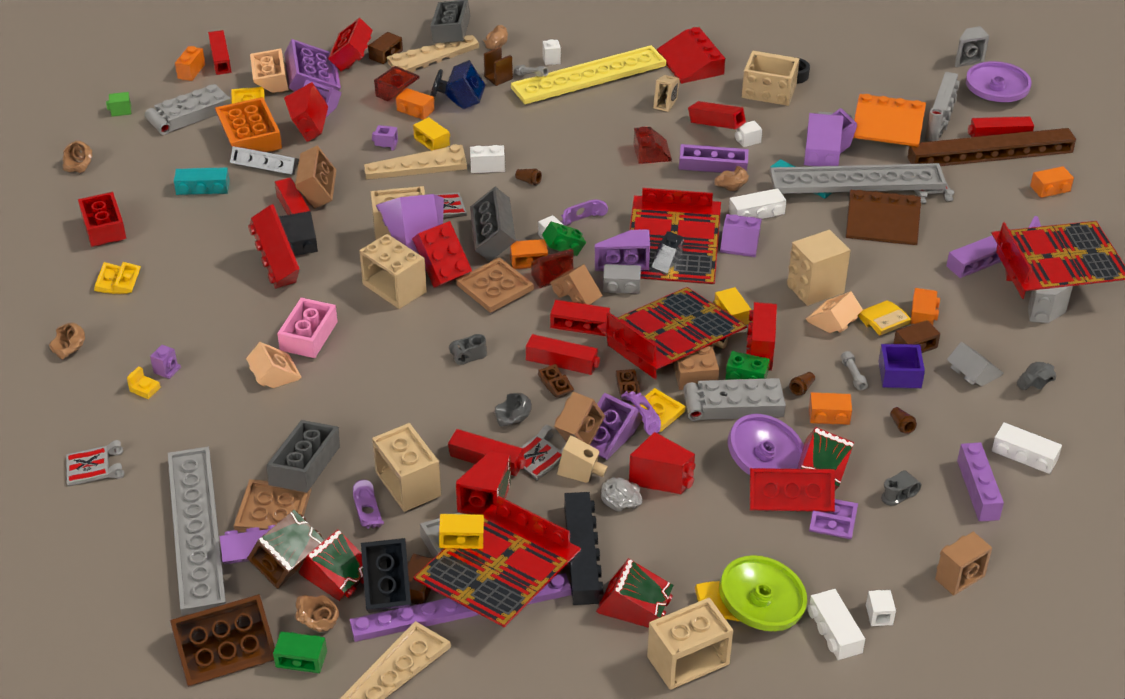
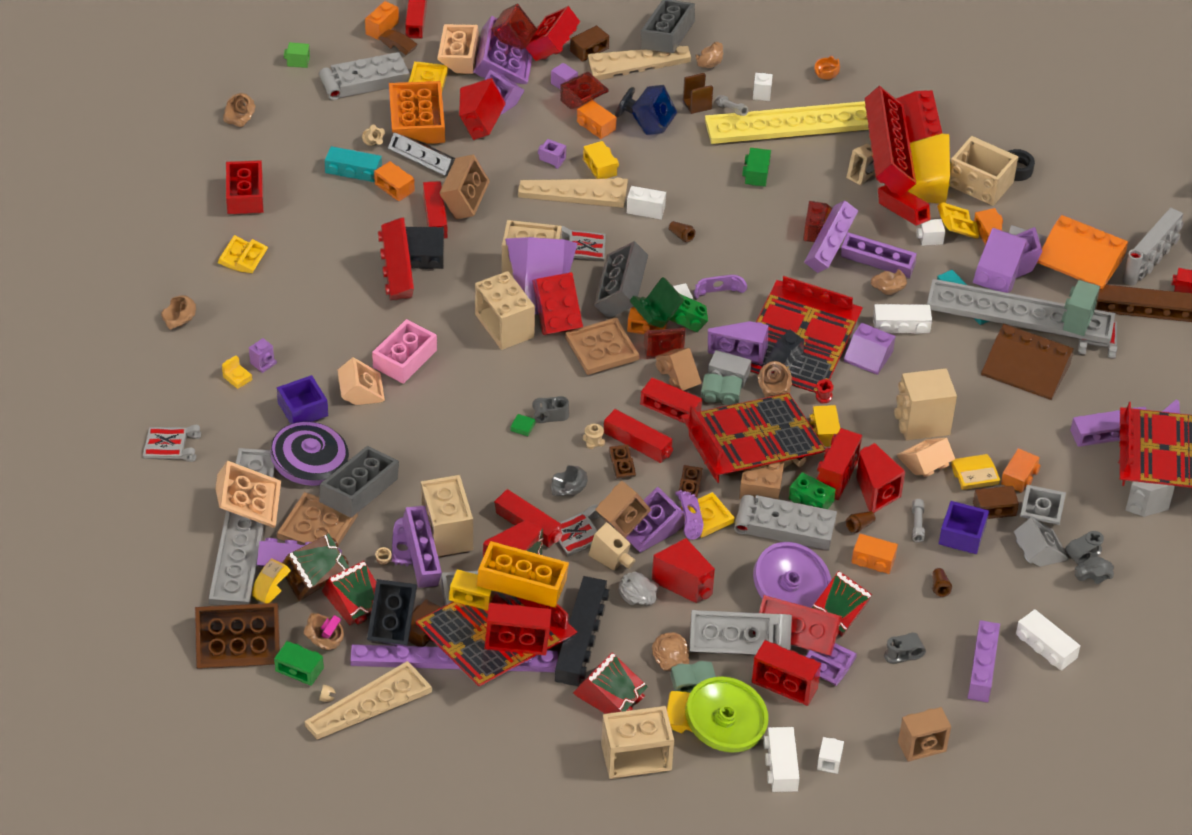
camera: 15 degrees right, 5 degrees up
(192, 492) = (248, 493): none -> light nougat slope
(204, 76) = (393, 38): none -> reddish brown slope
(213, 154) = (373, 135): none -> tan brick
(220, 394) = (302, 400): none -> dark purple piece
(240, 578) = (265, 586): none -> yellow slope
(241, 441) = (308, 452): none -> dish
(246, 187) = (394, 181): none -> orange brick
(315, 43) = (514, 27): none -> clear red slope
(322, 605) = (329, 626): none -> dark pink plate
(338, 677) = (326, 690): none -> tan hinge
(350, 521) = (382, 553): none -> tan hinge
(369, 74) = (562, 74): none -> medium lavender brick
(390, 502) = (422, 546): none -> medium lavender brick
(446, 369) = (522, 425): none -> green tile
(512, 502) = (522, 574): none -> light orange brick
(519, 364) = (593, 436): none -> tan brick
(525, 558) = (517, 629): none -> red brick
(539, 233) = (659, 304): none -> dark green bracket
(574, 112) = (757, 166): none -> green brick
(600, 29) = (827, 68): none -> orange hair
(622, 297) = (721, 389): none -> sand green brick
(667, 151) = (831, 236): none -> medium lavender brick
(671, 280) = (777, 382): none -> medium nougat hair
(679, 545) = (670, 650): none -> medium nougat hair
(685, 68) = (890, 141): none -> red brick
(709, 565) = (687, 676): none -> sand green brick
(717, 278) = (824, 391): none -> red bush
(724, 82) = (931, 168): none -> yellow windscreen
(730, 511) = (729, 631): none -> light grey hinge
(767, 119) = (958, 220): none -> yellow slope
(795, 120) = (986, 221): none -> orange slope
(803, 339) = (879, 477): none -> red slope
(803, 537) = (786, 672): none -> red brick
(913, 161) = (1080, 307): none -> sand green brick
(962, 328) = (1043, 504): none -> light grey slope
(1015, 359) = (1085, 547): none -> dark grey piece

